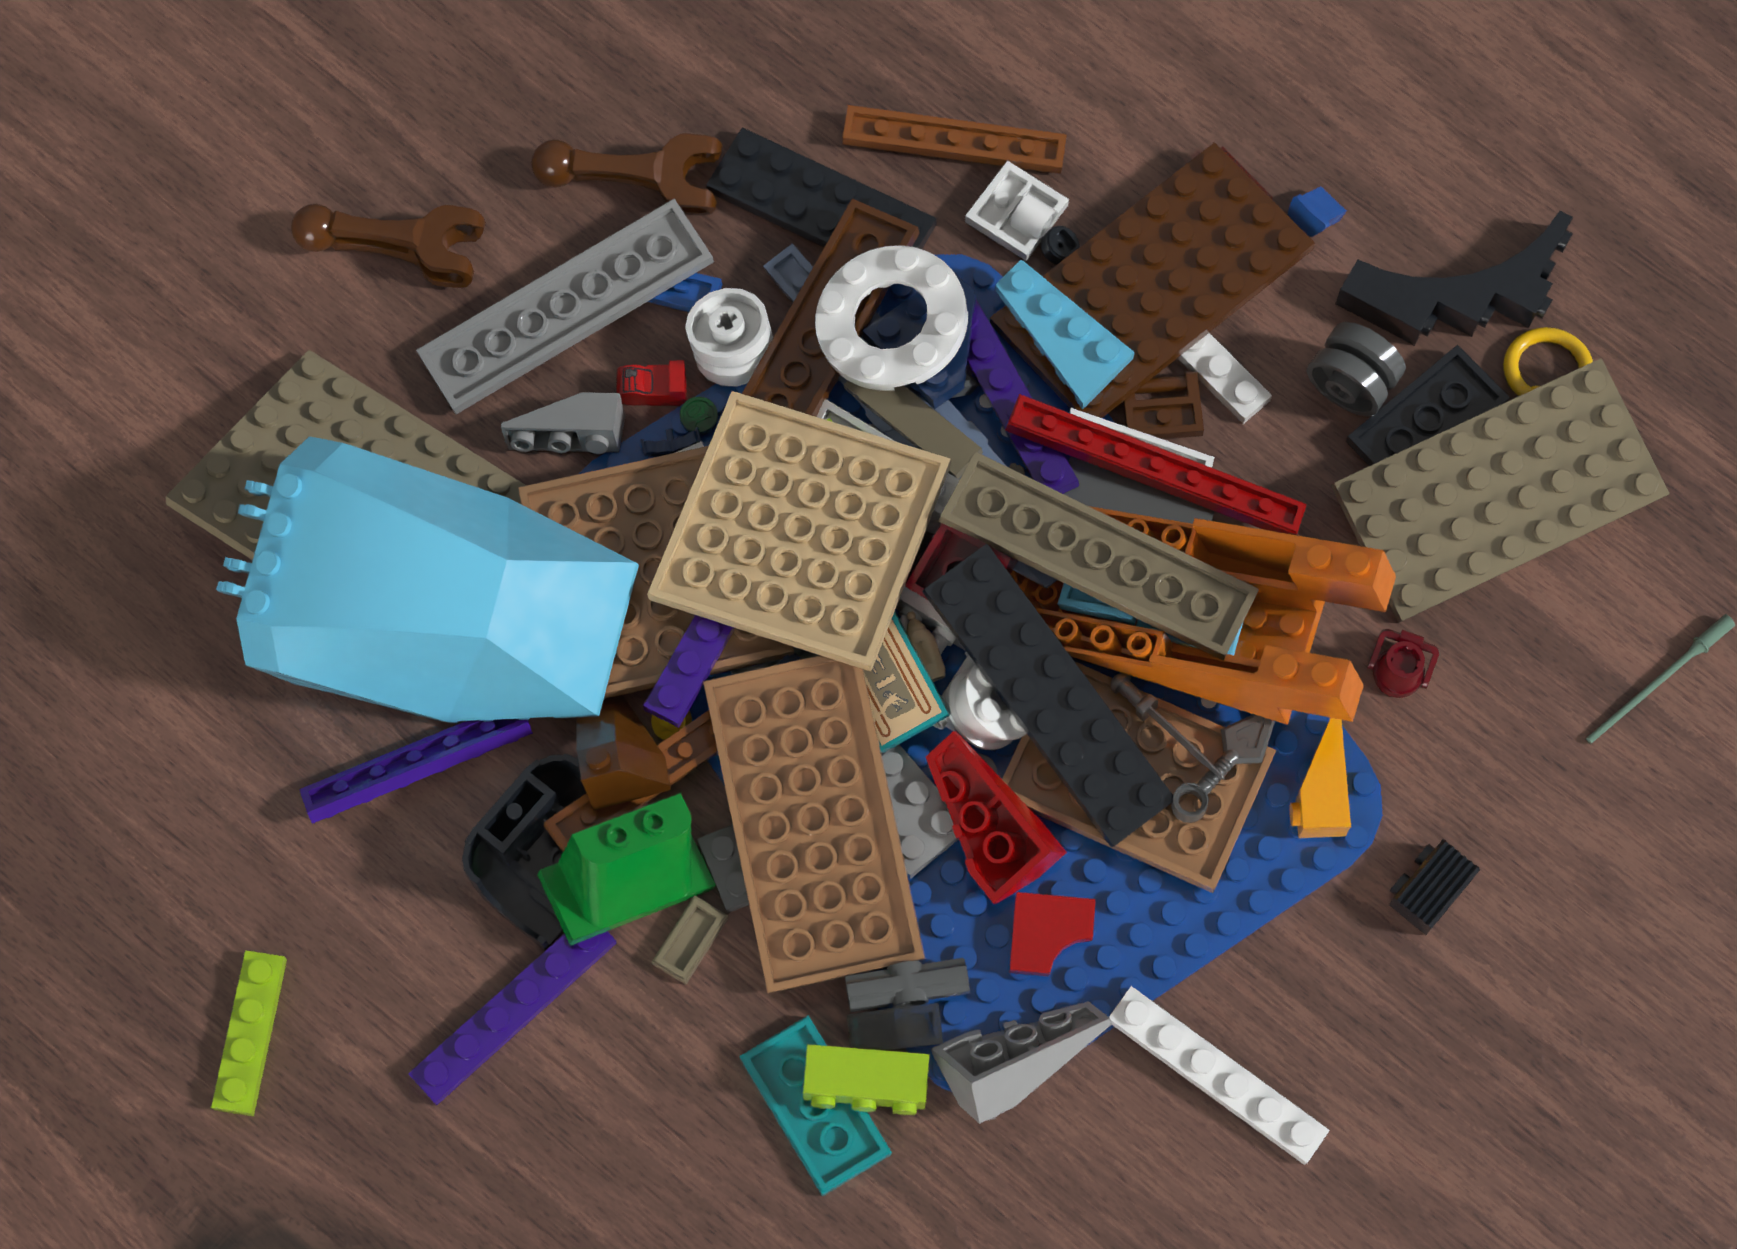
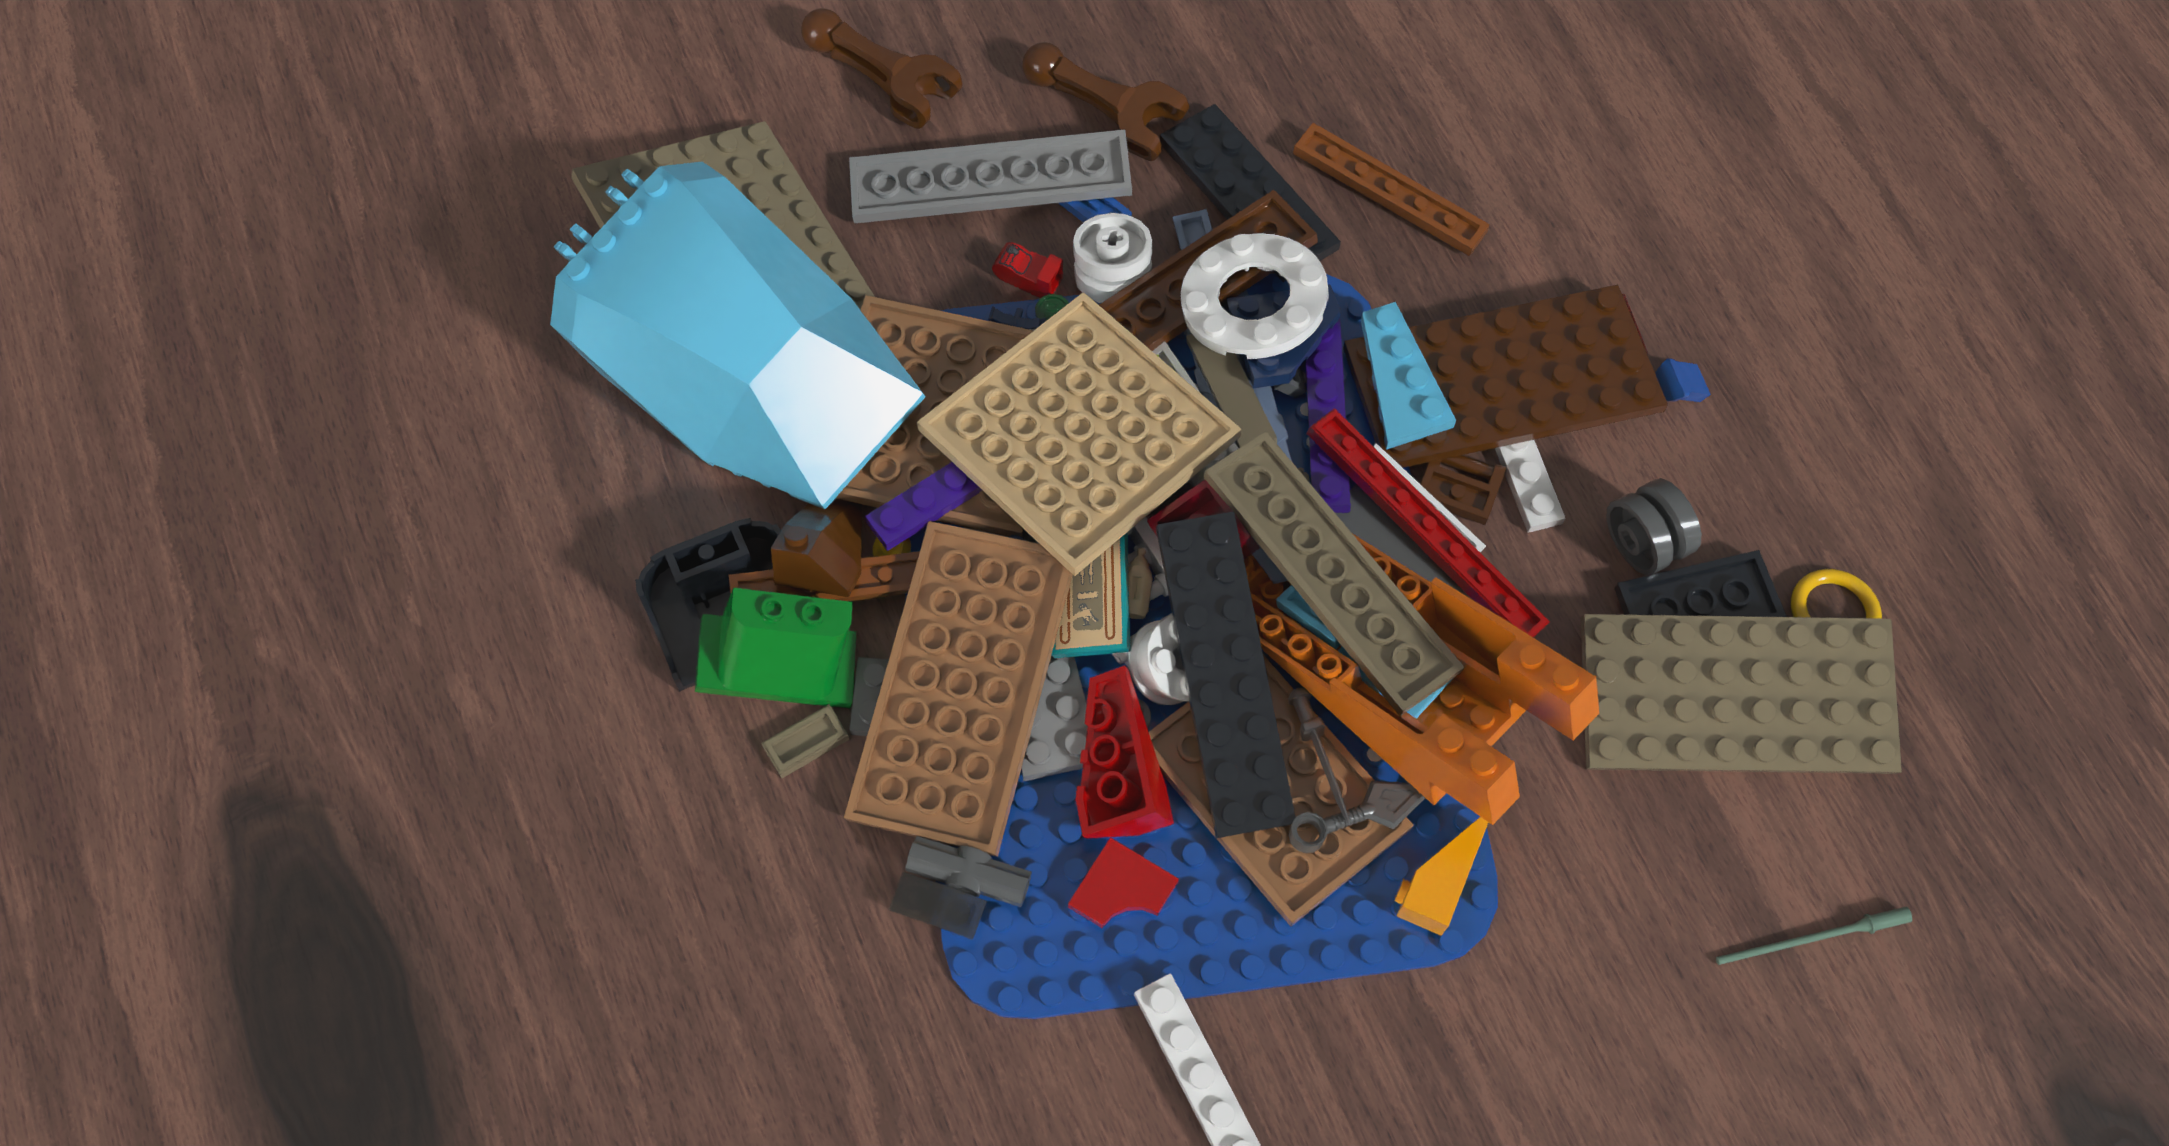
camera: 25 degrees right, 5 degrees down
(249, 1033) = (395, 638): lime plate -> none
(408, 765) = (653, 480): dark purple plate -> none
(507, 1014) = (615, 728): dark purple plate -> none
(577, 423) = (942, 270): light grey slope -> none
(829, 1142) = (833, 941): teal tile -> none
(866, 1079) = (886, 936): lime brick -> none
(1005, 1066) = (1017, 989): light grey wedge -> none
(1016, 210) = (1414, 268): white plate -> none
(1059, 244) = (1437, 308): black tile -> none
(1401, 667) = (1569, 809): dark red piece -> none
(1413, 304) = (1783, 517): black arch -> none
(1433, 886) = (1502, 1022): black brick -> none

